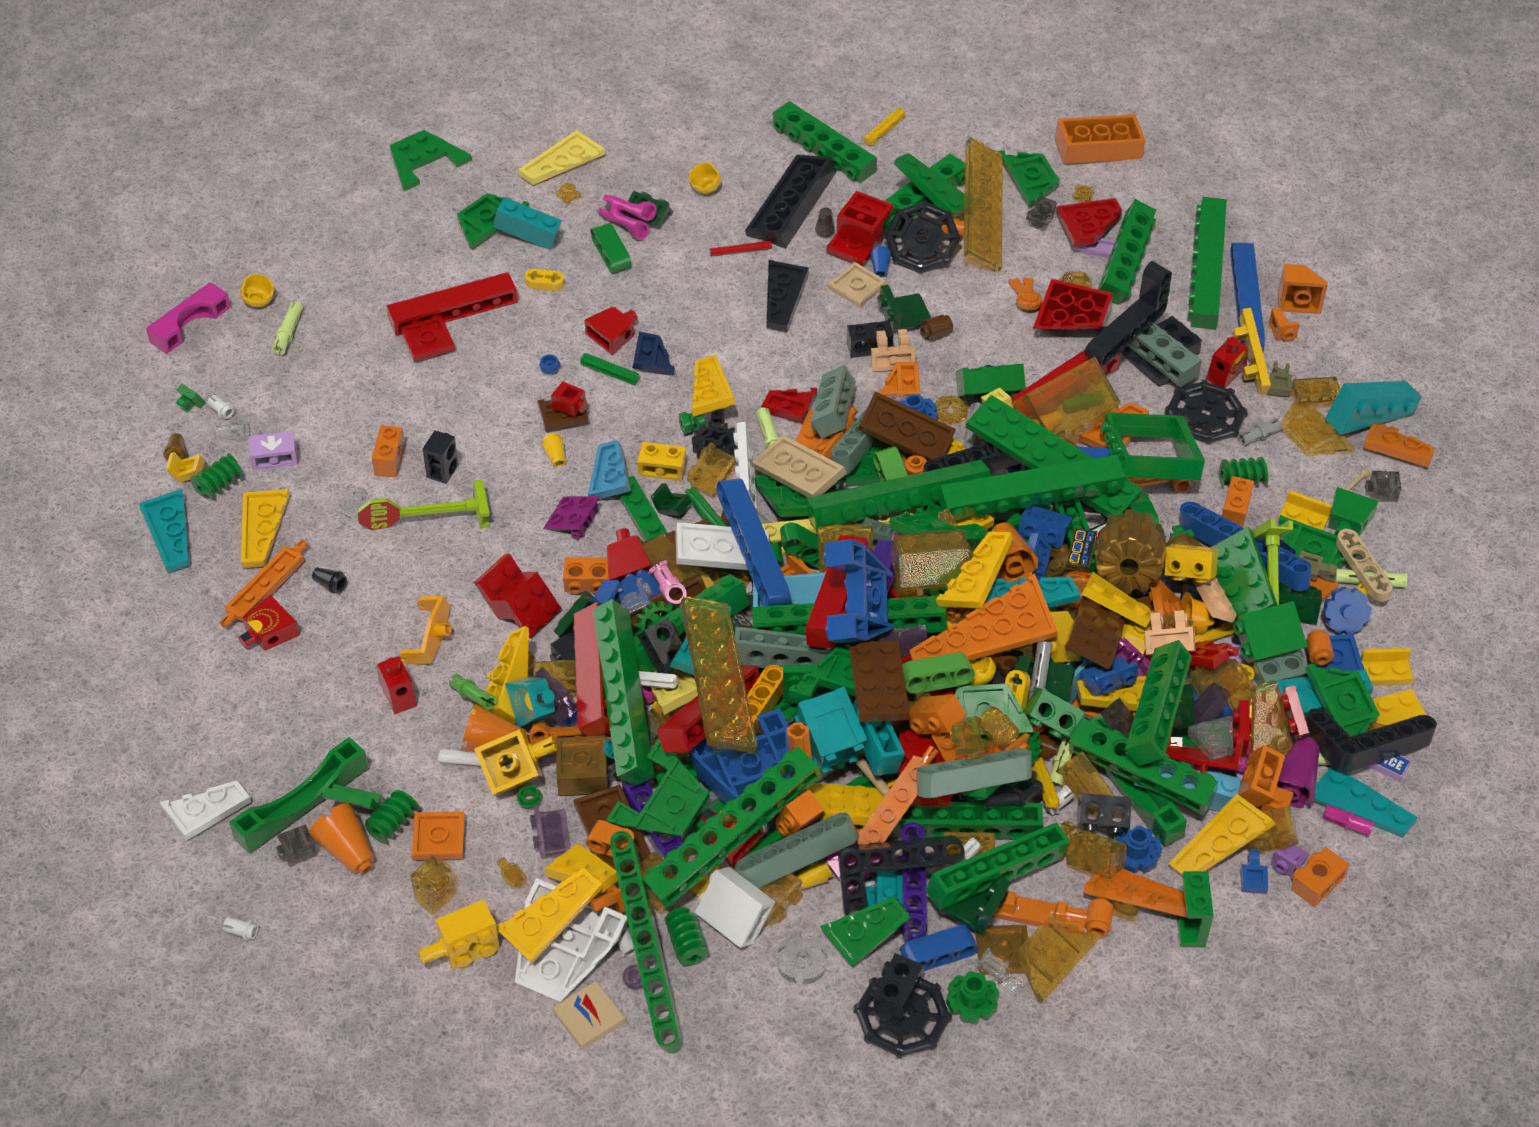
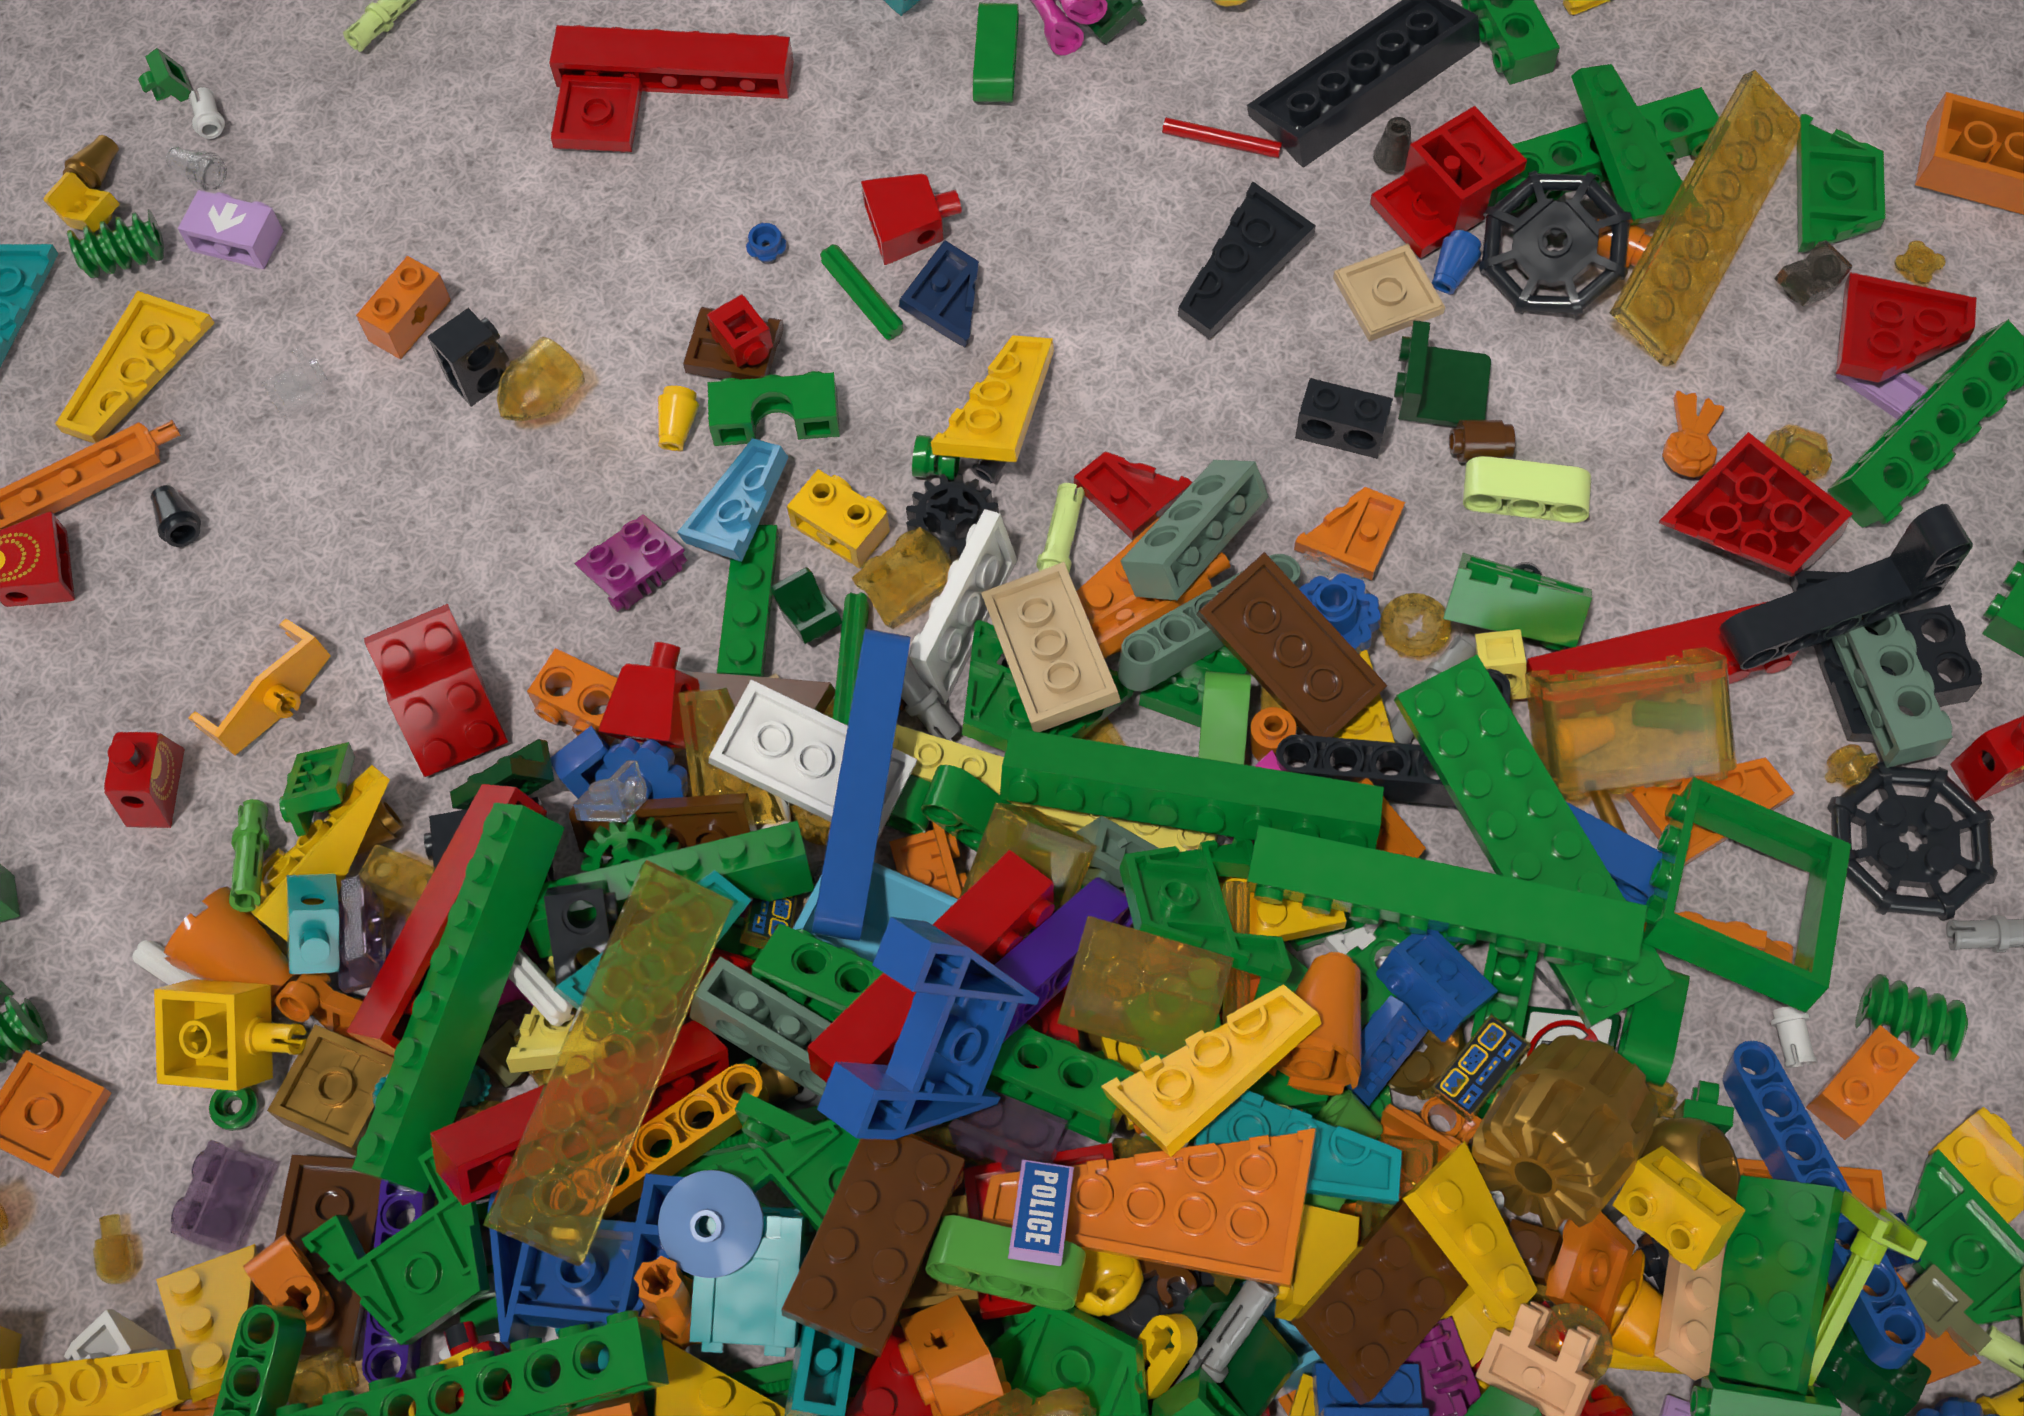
camera: 30 degrees right, 15 degrees up
(384, 513) = (319, 431): lime piece -> none
(480, 455) = (538, 382): none -> clear yellow helmet
(485, 649) = (315, 784): none -> green bracket
(544, 279) = (850, 75): yellow beam -> none
(615, 420) = (739, 405): none -> green arch
(667, 584) = (680, 793): bright pink connector -> none
(809, 714) = (736, 1216): none -> medium blue dish
(884, 357) = (1352, 470): light nougat plate -> none
(942, 645) = (1041, 1213): none -> tile
(967, 339) = (1527, 489): none -> yellowish green beam
(1165, 392) = (1849, 765): none -> clear yellow plate
(1196, 495) = (1793, 1036): none -> white pin

